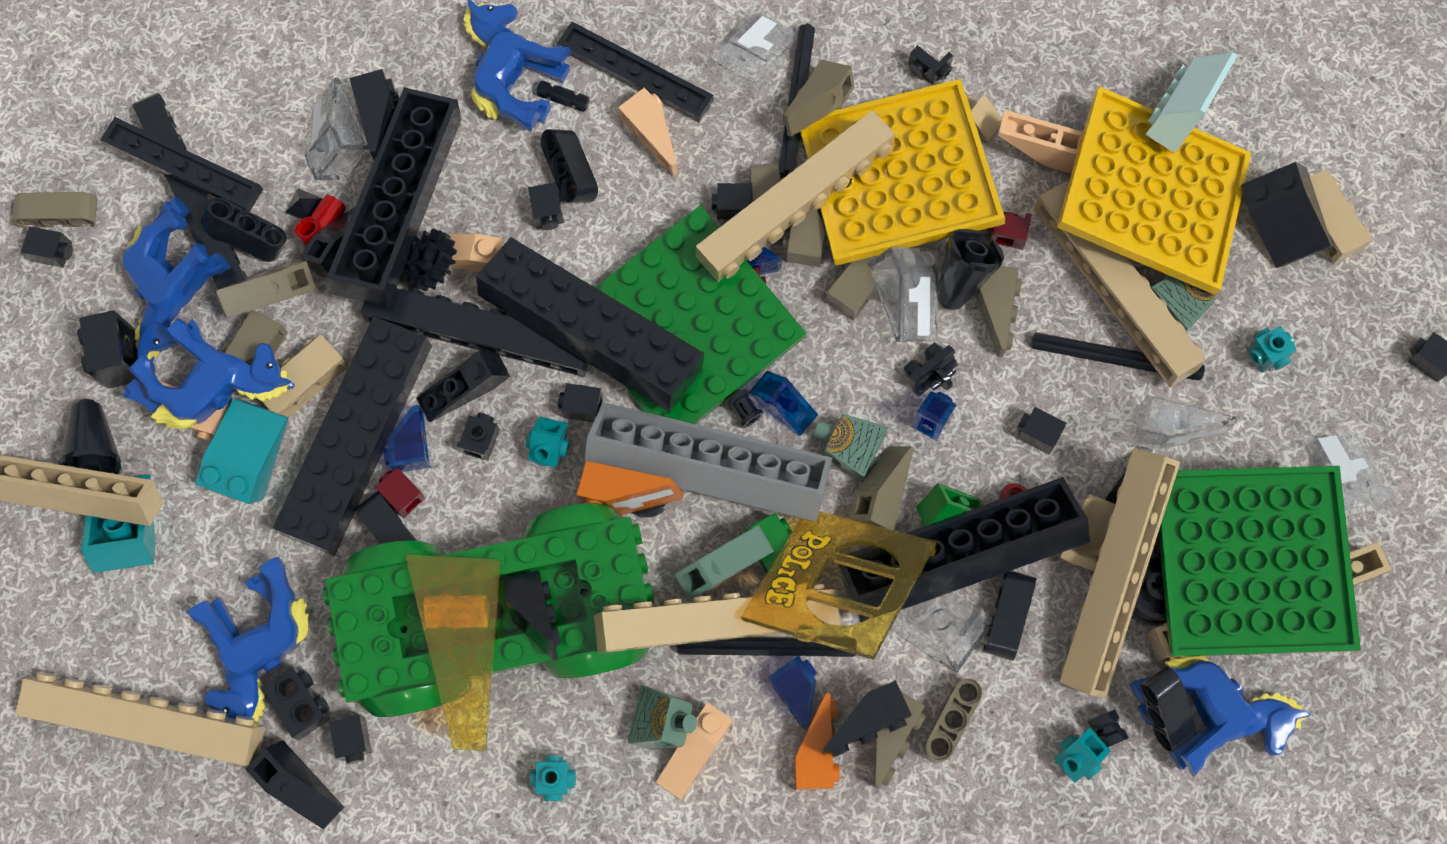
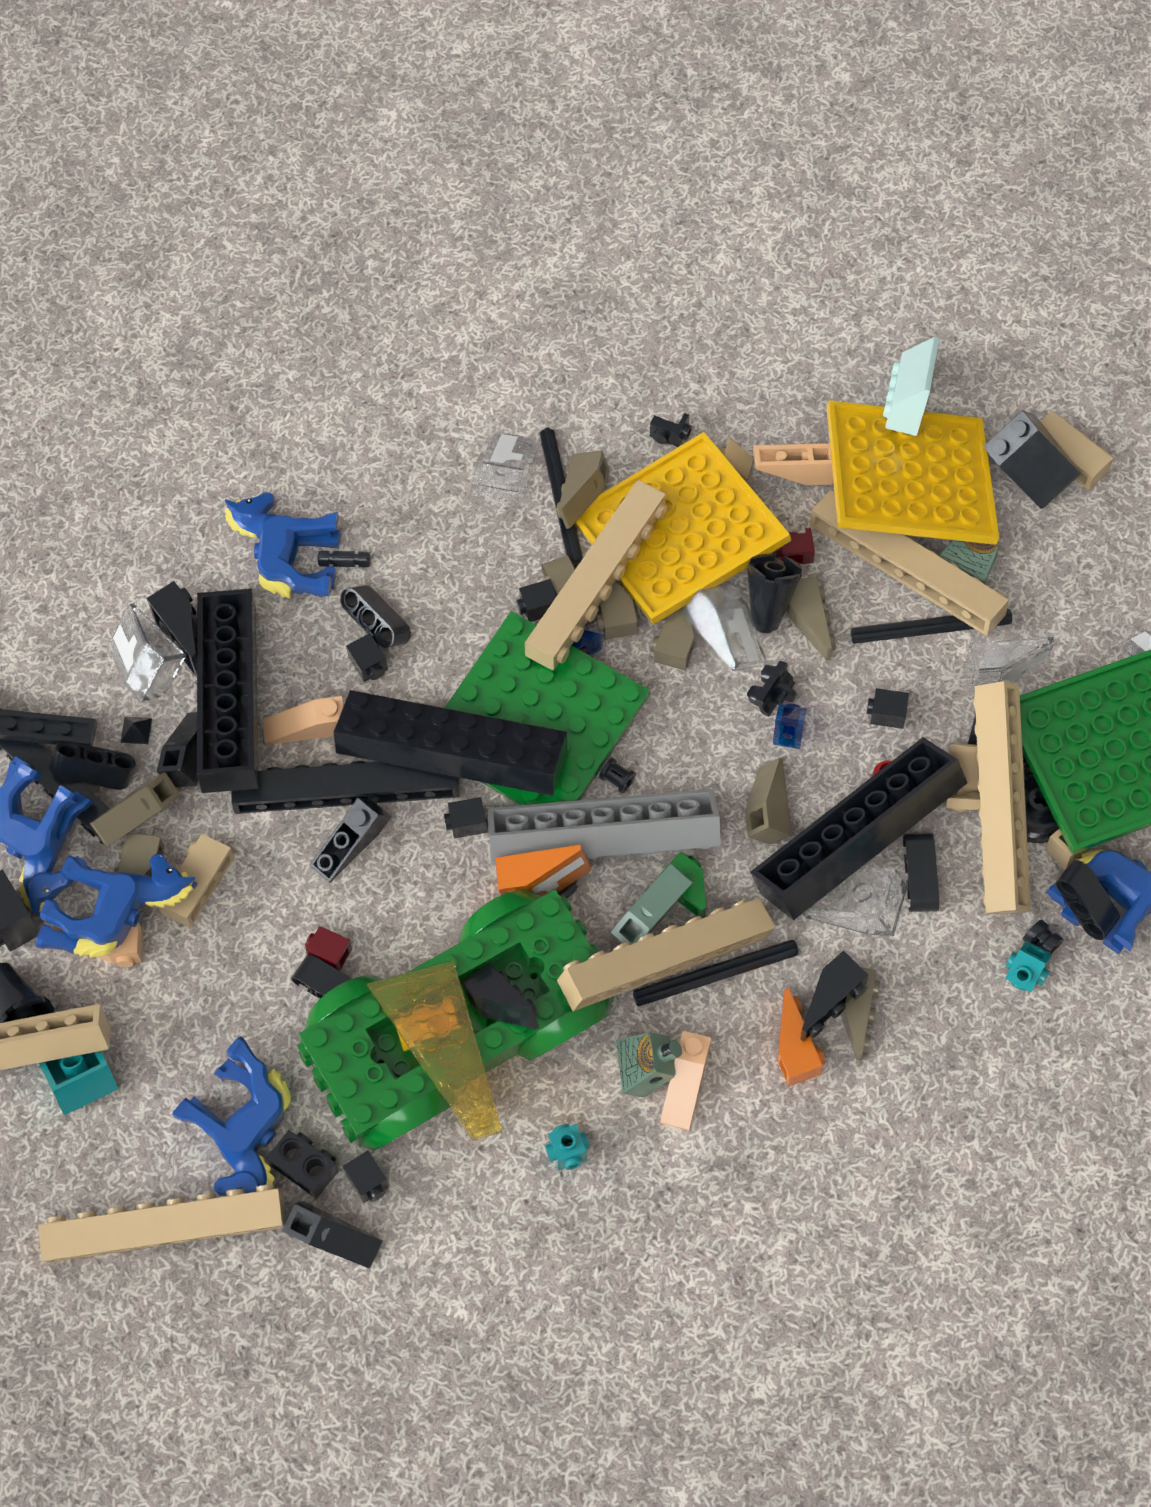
camera: 20 degrees left, 10 degrees down
(243, 452) = (168, 958): teal slope -> none
(325, 213) = (162, 727): red piece -> none
(353, 436) = (265, 915): black brick -> none
(408, 443) = (319, 904): clear blue slope -> none
(430, 260) = (280, 736): black gear -> none
(481, 446) = (382, 886): black brick -> none
(548, 442) = (449, 860): teal brick -> none
(636, 71) = (405, 516): black plate -> none
(647, 121) = (433, 557): light nougat slope -> none
(783, 402) = (650, 757): clear blue slope -> none
(789, 584) = (722, 876): clear yellow door -> none
(796, 688) = (756, 997): clear blue slope -> none
(851, 443) = (725, 772): sand green torso -> none
(944, 503) = (826, 795): green slope -> none
(963, 710) = (907, 965): dark tan beam -> none
(1271, 349) = (1062, 576): teal brick -> none

